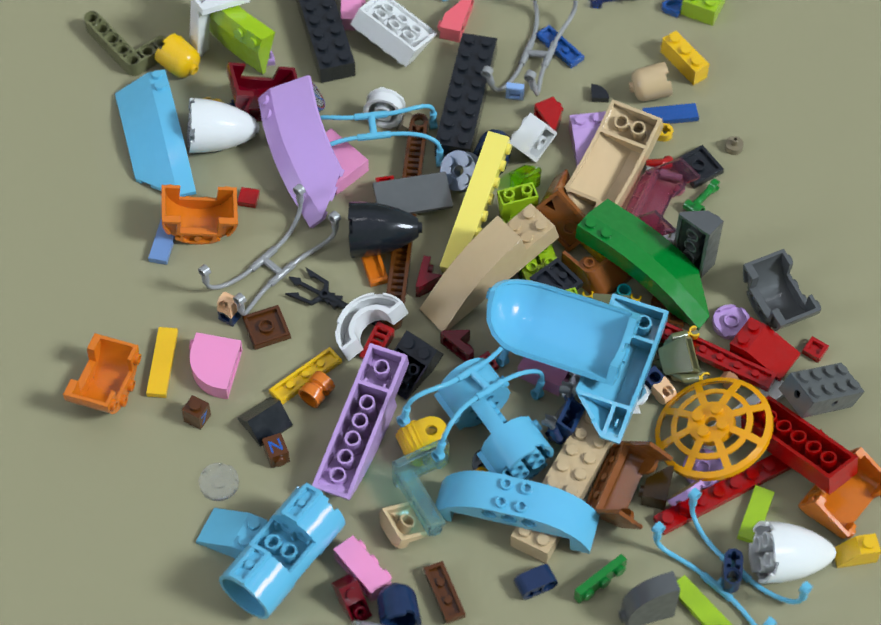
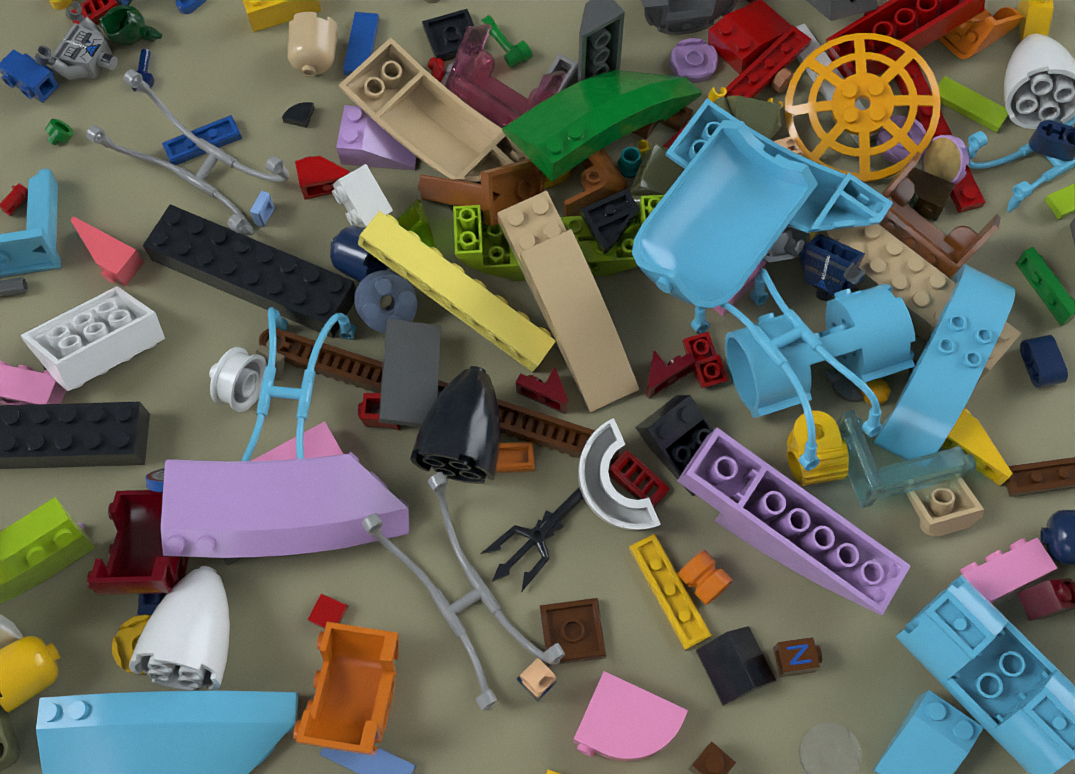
camera: 75 degrees left, 10 degrees up
(457, 536) = (975, 441): none -> yellow slope

